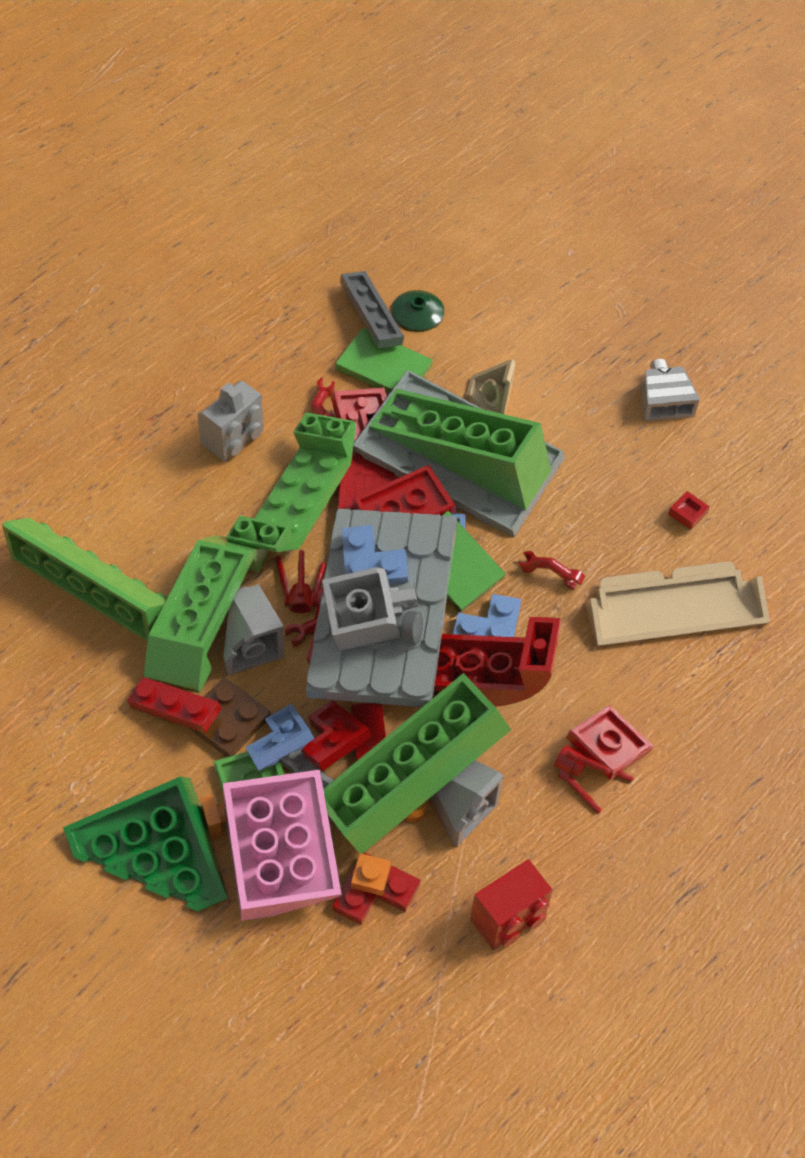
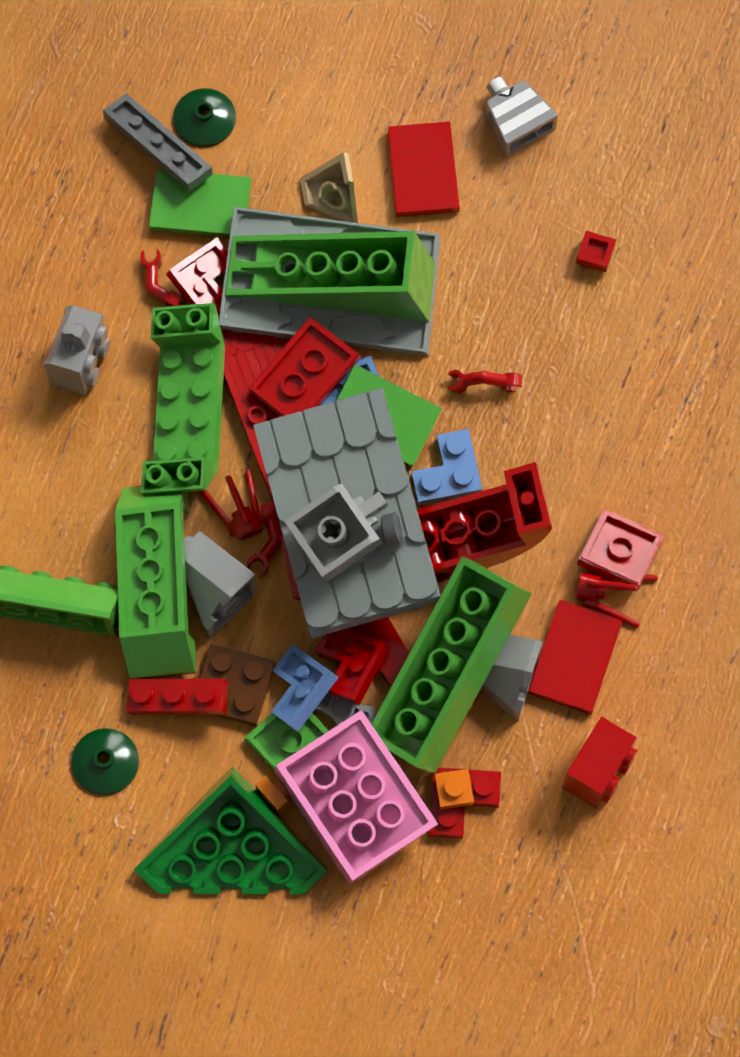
camera: 20 degrees left, 15 degrees up
(93, 745) = (108, 777): none -> dark green dish
(361, 554) = (313, 478): medium blue plate -> none
(531, 813) = (575, 657): none -> red tile
(573, 404) = (423, 169): none -> red tile
(687, 603) = (636, 360): tan slope -> none

